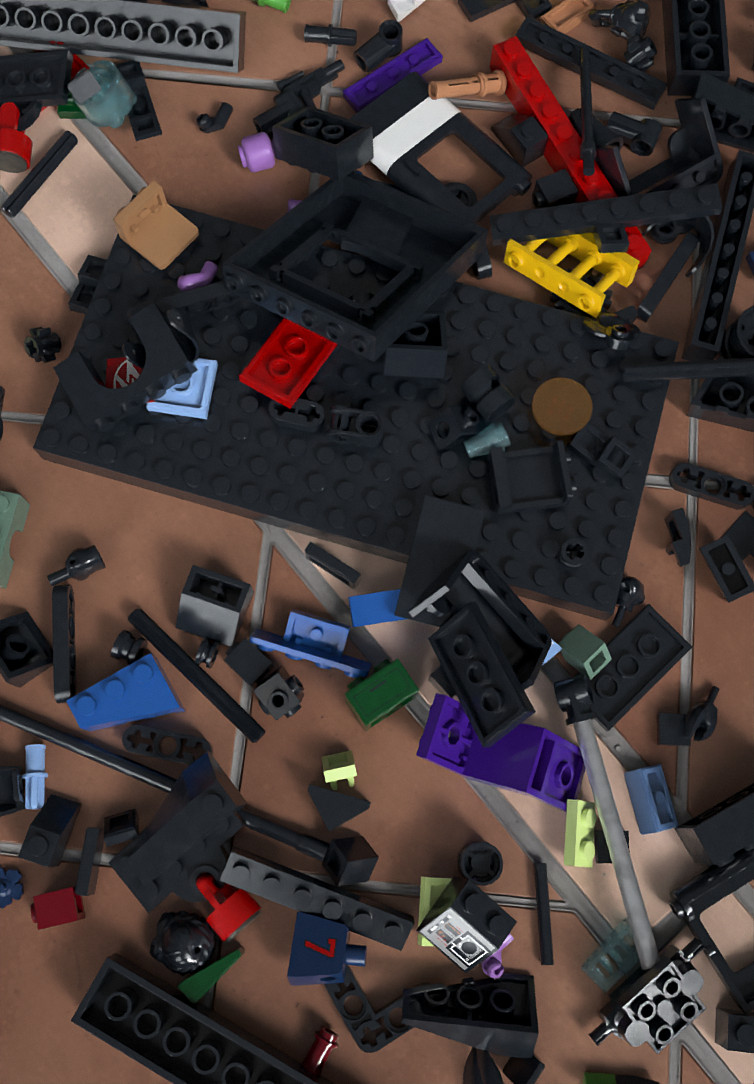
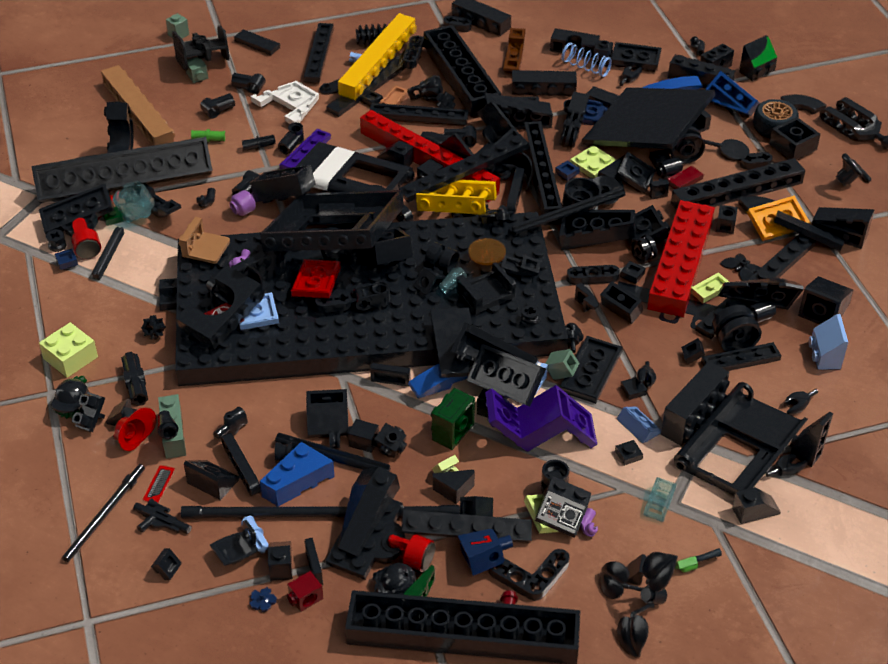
camera: 20 degrees left, 30 degrees down
(83, 86) = (124, 195): slope -> none
(121, 827) = (325, 538): black tile -> none
(147, 732) = (324, 489): black beam -> none
(311, 84) = (257, 167): black piece -> none
(313, 640) = (398, 411): blue bracket -> none
(477, 85) = (359, 138): nougat pin -> none
(482, 1013) = (602, 547): black wedge -> none
(543, 914) = (607, 497): black bar -> none
(575, 698) = (570, 384): flat silver piece -> none
(579, 833) = (606, 449): yellowish green plate -> none
(588, 147) = (438, 141): black bar -> none
(611, 238) = (474, 175): black plate -> none
(655, 1002) = (690, 505): black piece -> none

